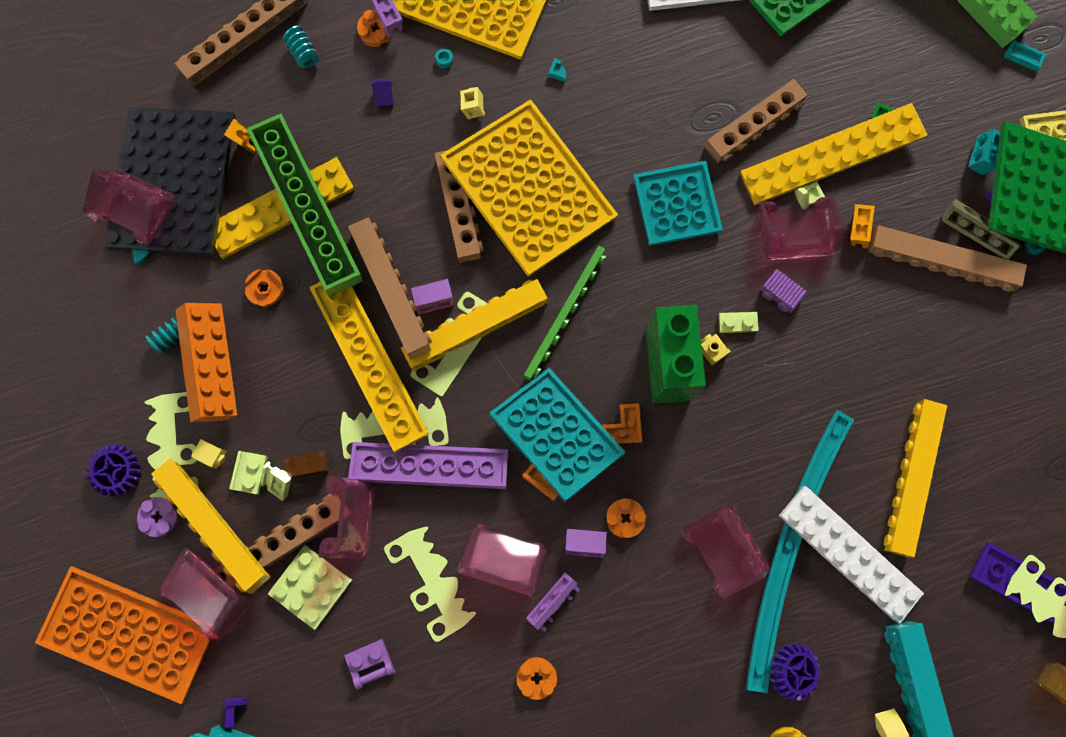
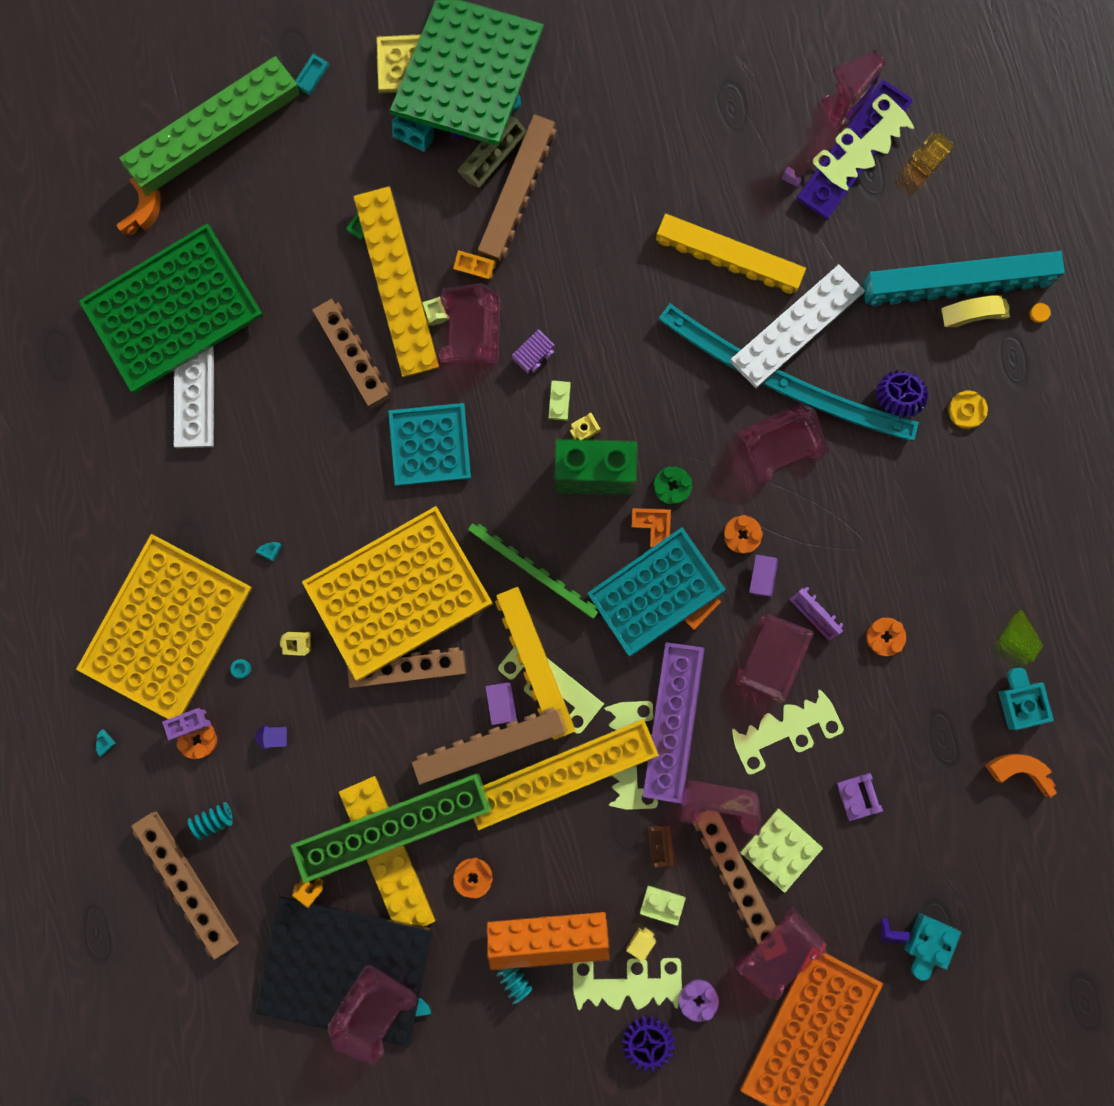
camera: 75 degrees left, 5 degrees up
(210, 526) = (714, 945): yellow brick -> none
(276, 481) = (676, 876): yellowish green plate -> none
(677, 438) = (675, 496): none -> green plate
(1007, 533) = (790, 177): none -> medium lavender tile

